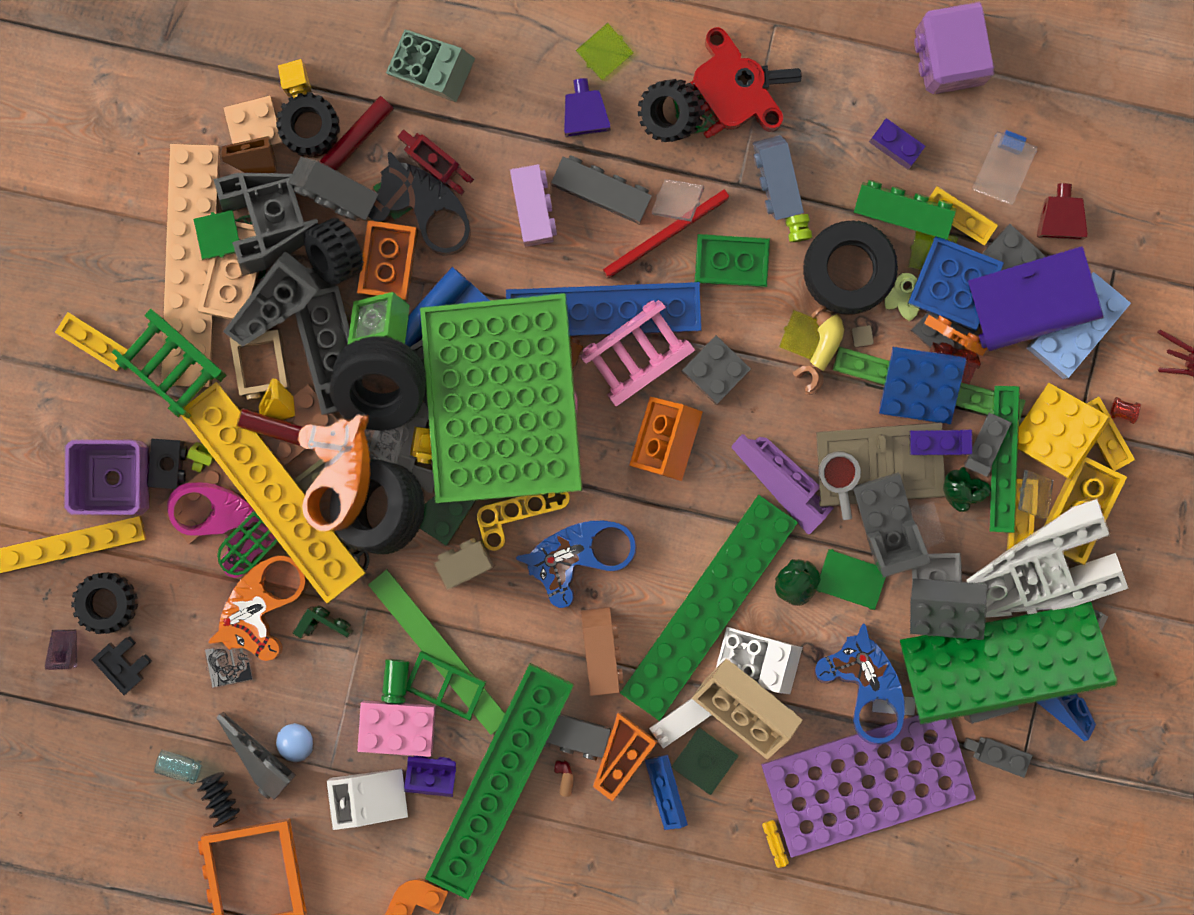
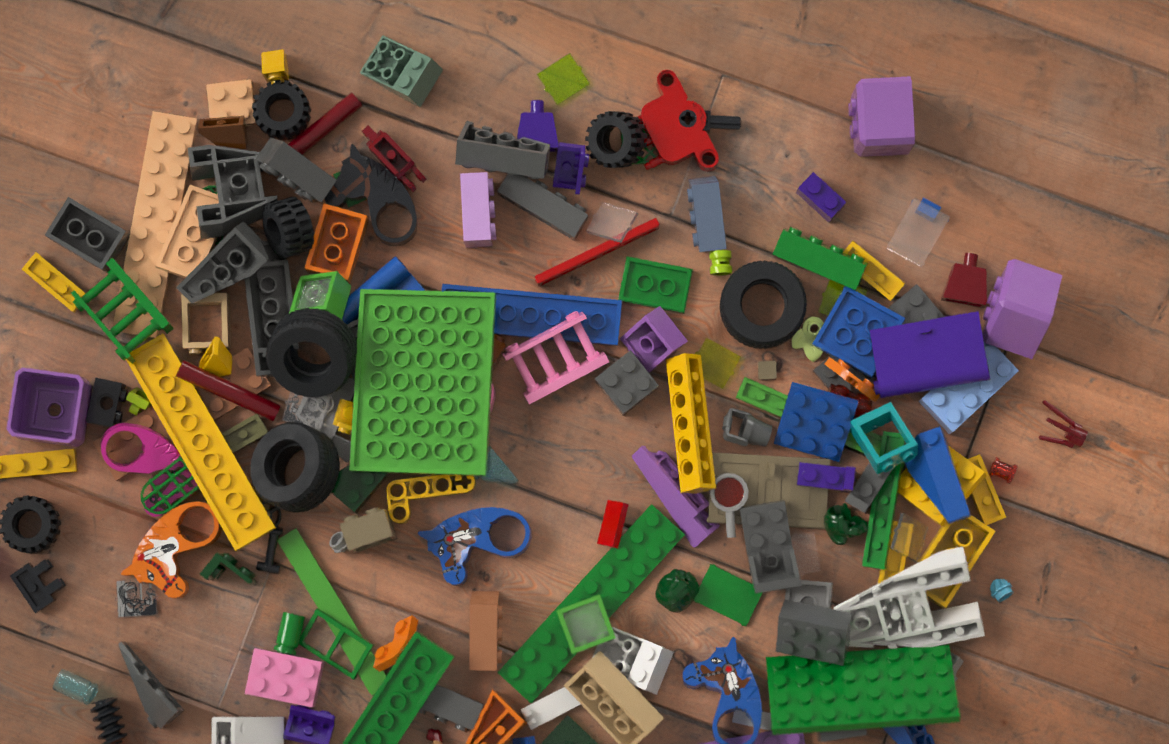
camera: 10 degrees right, 5 degrees down
(119, 286) = (87, 234): none -> dark grey brick
(216, 234) = (182, 198): green piece -> none
(294, 742) = (187, 679): light blue hair -> none
(346, 469) = (270, 429): animal -> none
(362, 611) = (268, 565): none -> black piece
(433, 579) = (338, 542): none -> light grey plate
(504, 688) = (389, 653): none -> orange plate
(550, 140) = (501, 152): none -> dark grey wedge
(592, 481) = (497, 470): none -> clear light blue slope
(625, 146) = (569, 166): none -> dark purple bracket
(666, 438) = (572, 440): orange slope -> none
(707, 632) = (586, 624): none -> clear piece
(720, 521) = (612, 524): none -> red tile
(738, 319) = (654, 339): none -> medium lavender slope
(790, 404) = (690, 423): none -> yellow brick
(831, 335) = (737, 365): light yellow piece -> none
(853, 402) = (751, 430): none -> dark grey piece
(985, 375) = (874, 420): none -> teal window
(1054, 421) = (937, 475): none -> blue wedge
(1127, 236) = (1020, 308): none -> medium lavender plate
(1138, 536) = (1001, 589): none -> medium azure plate

